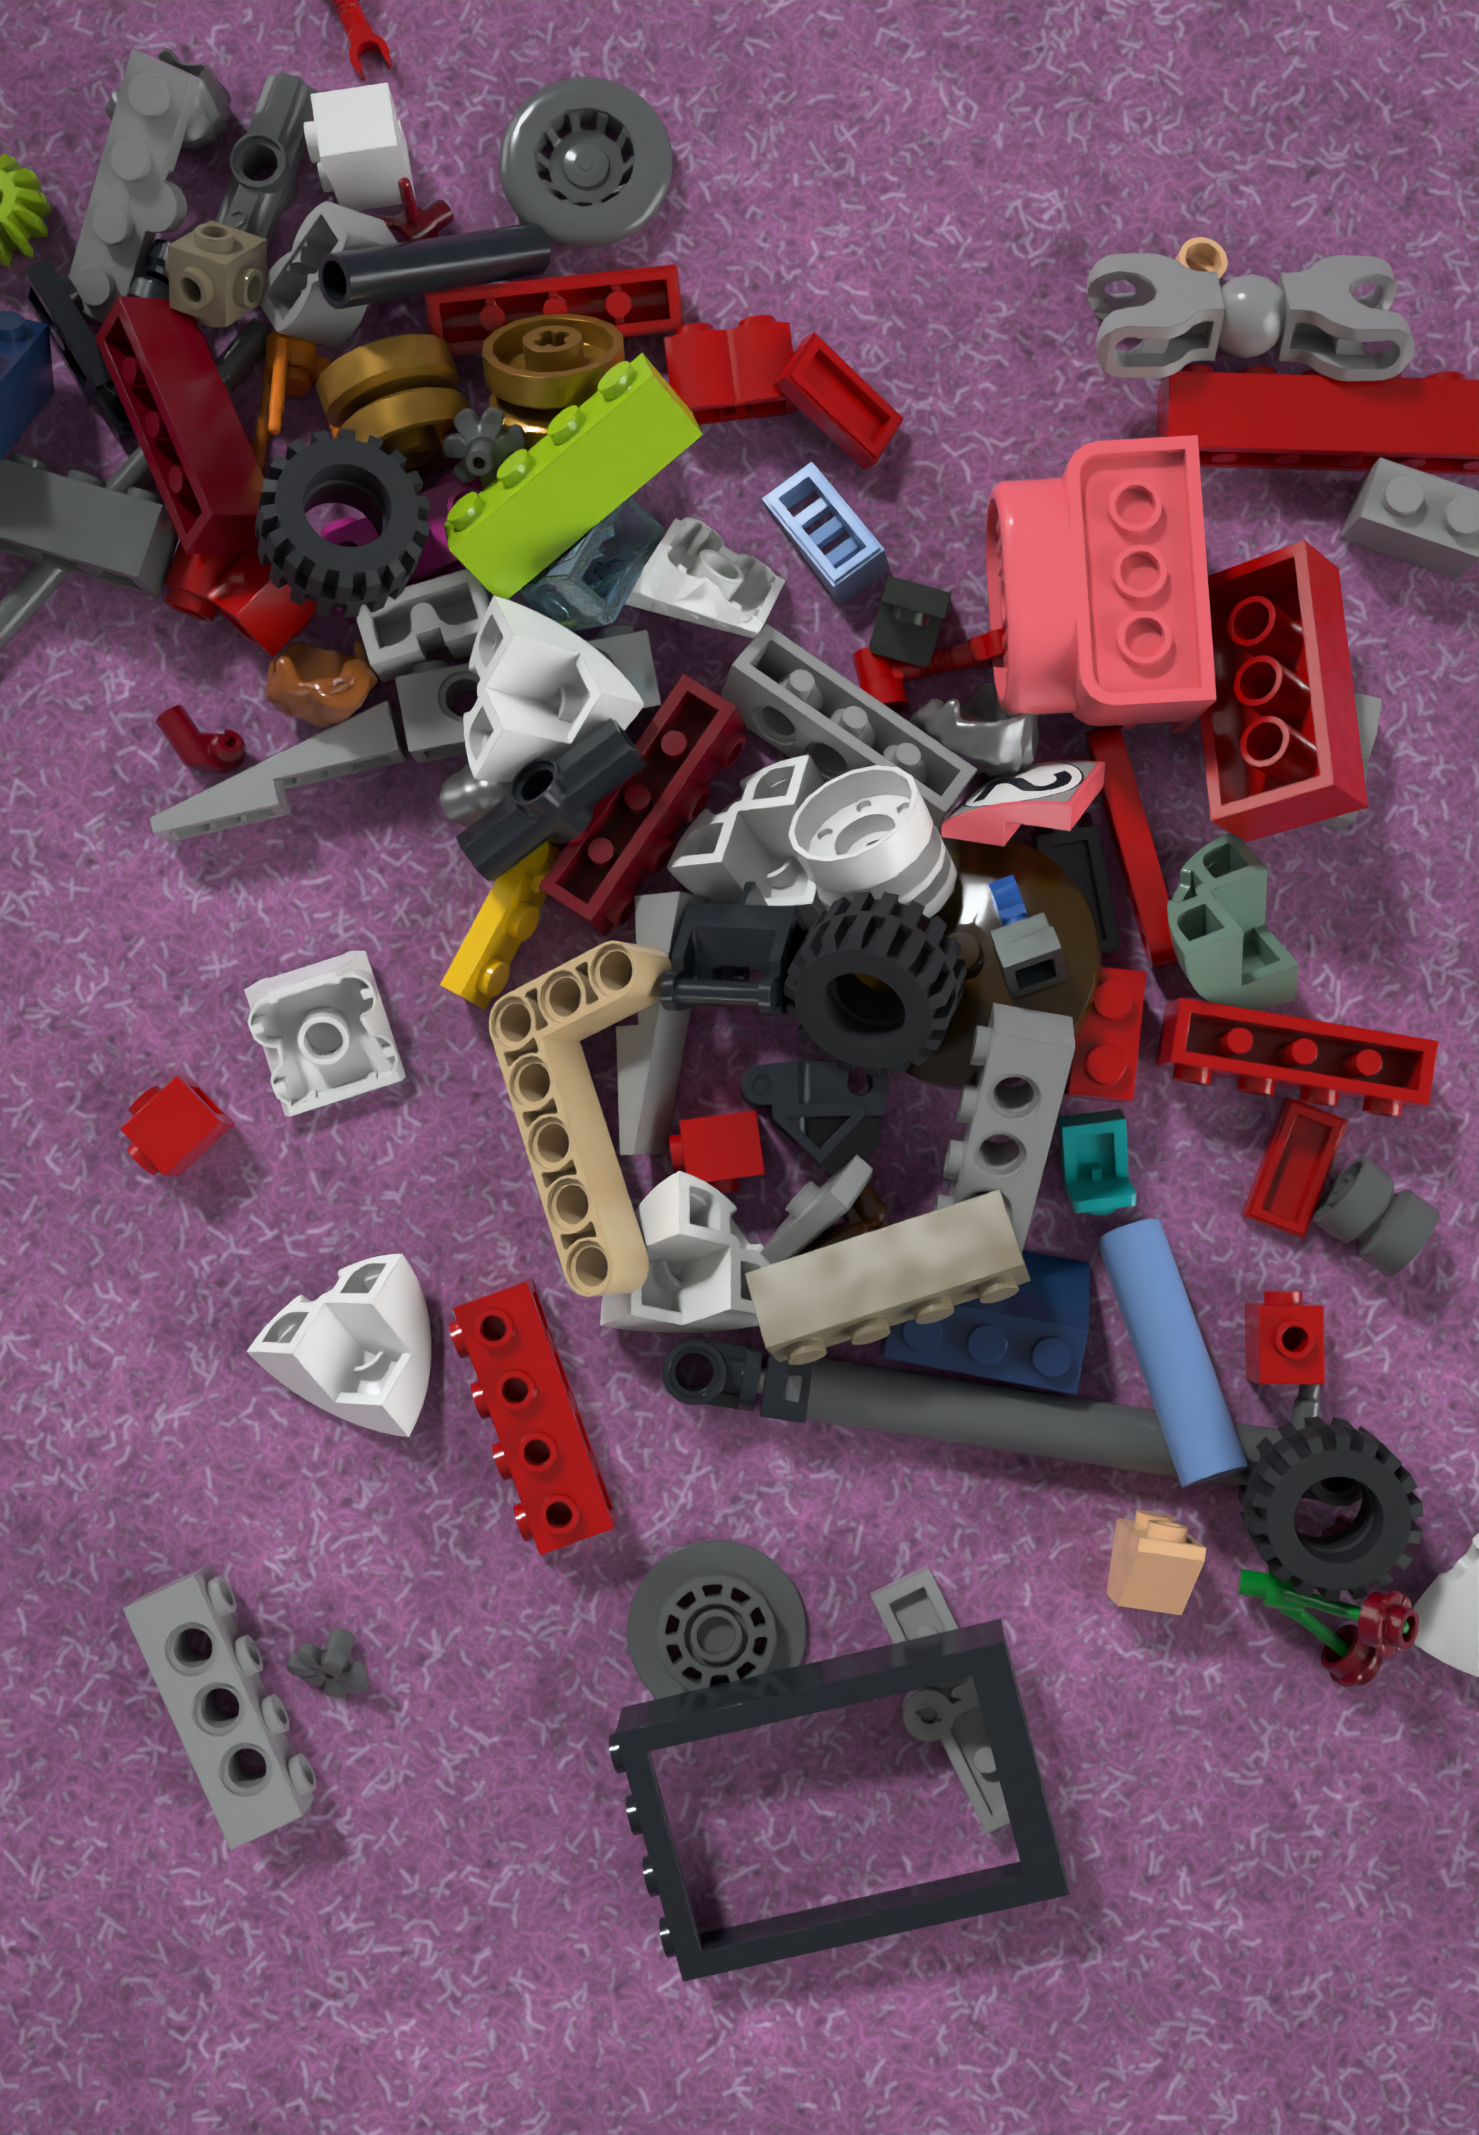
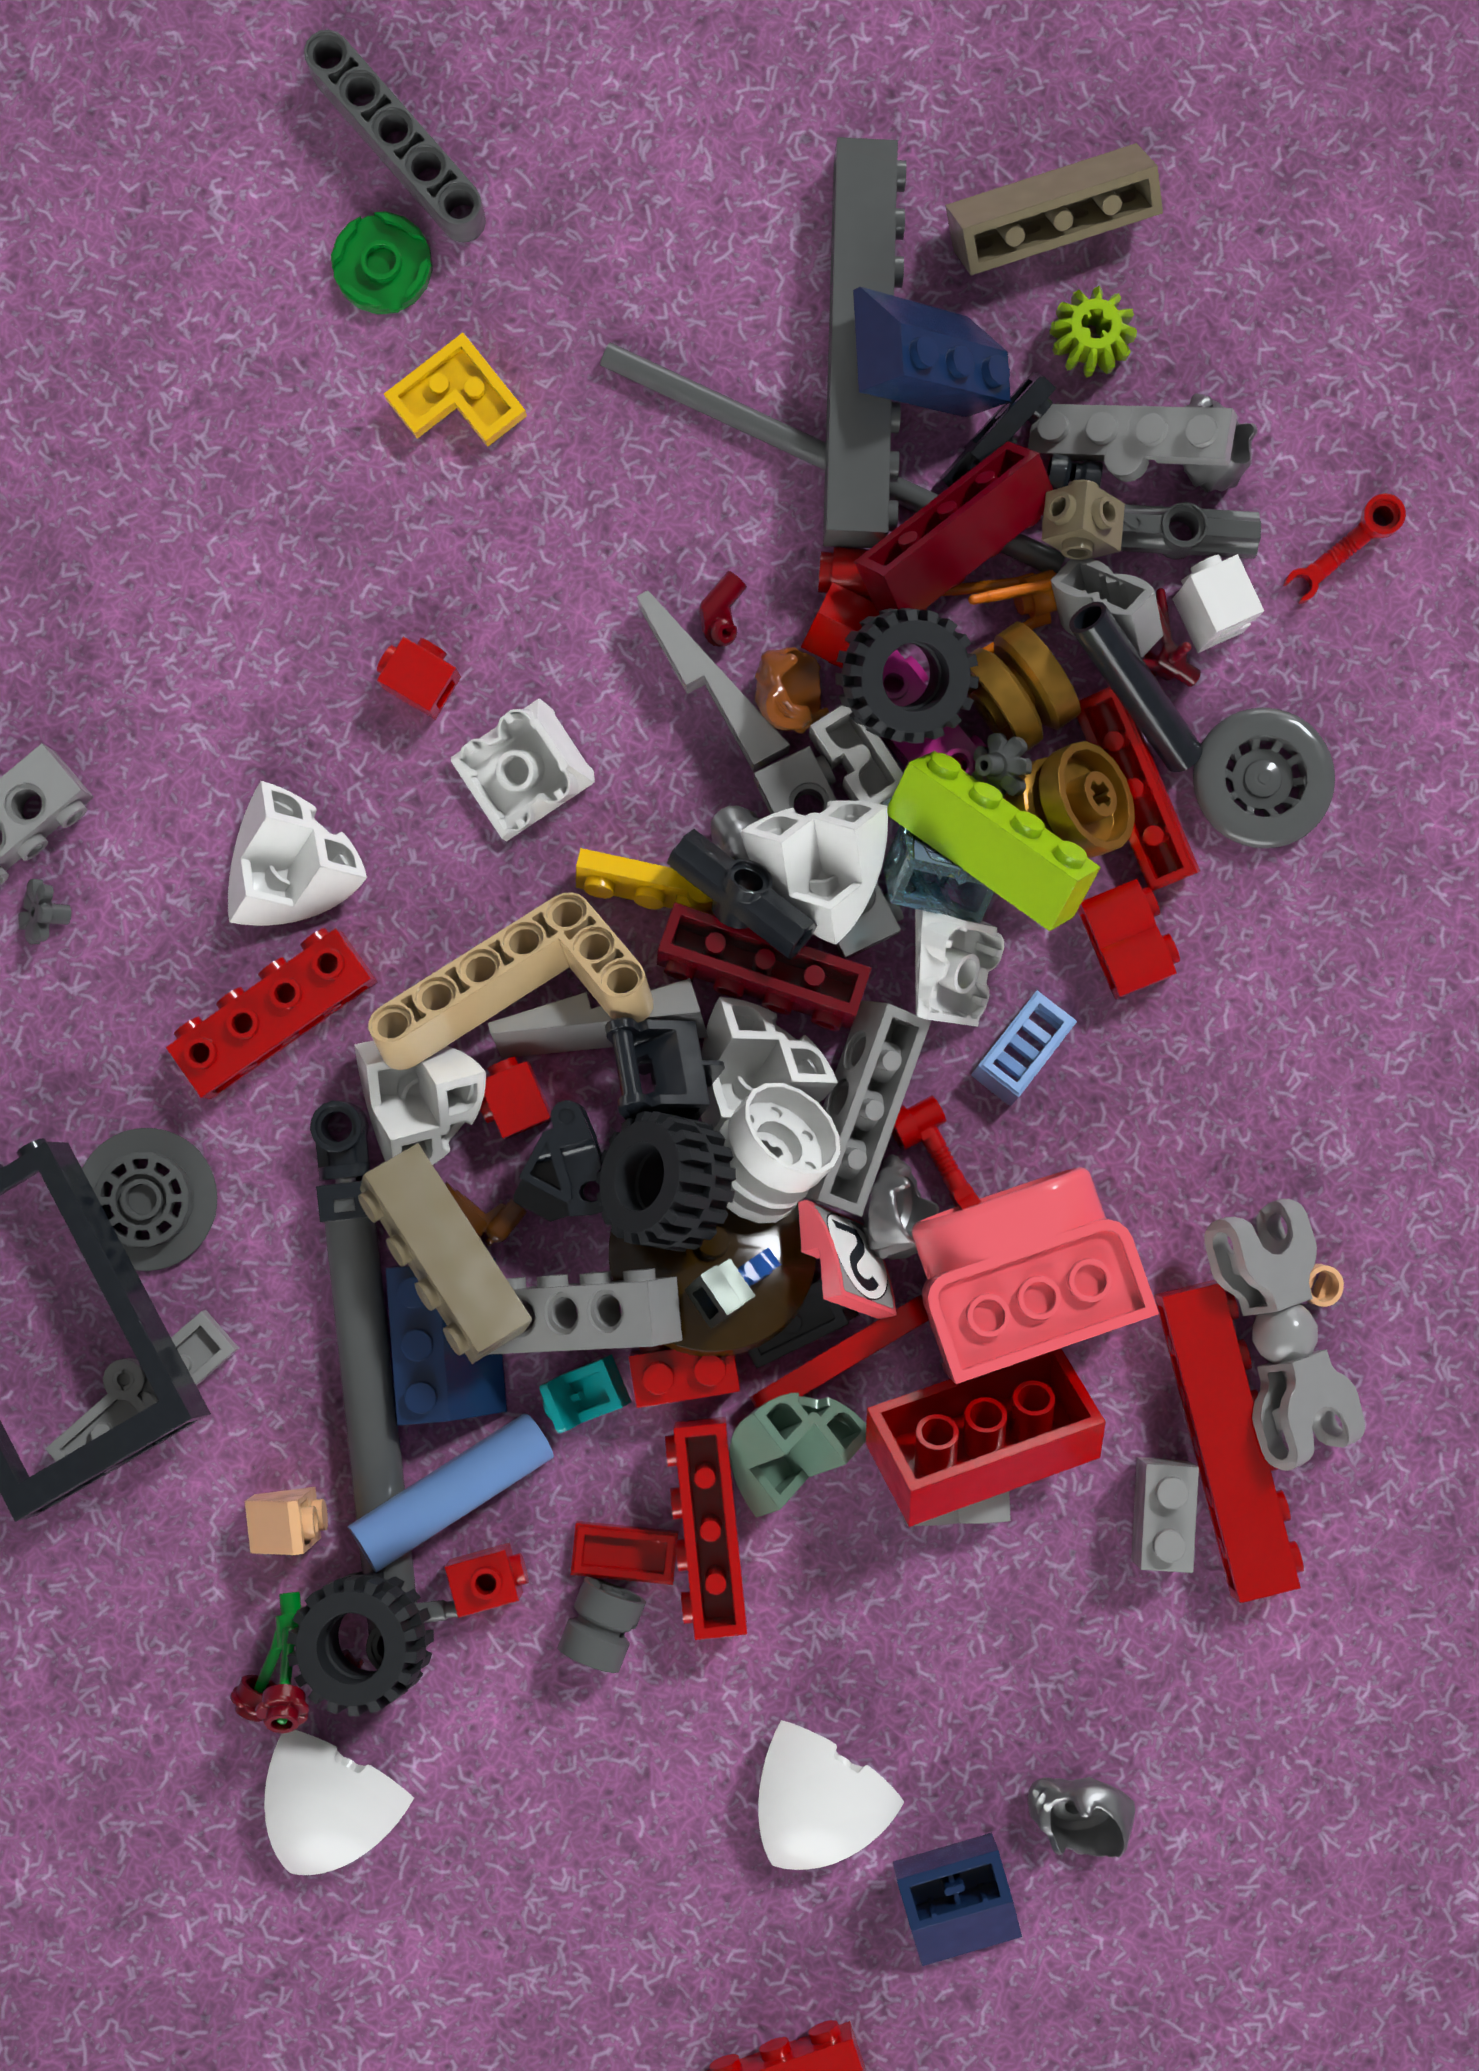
camera: 75 degrees right, 0 degrees up
(817, 1209) = (485, 1186): light grey plate -> none
(838, 401) = (1126, 1029): red tile -> none
(909, 621) = (969, 1131): pearl dark grey slope -> none

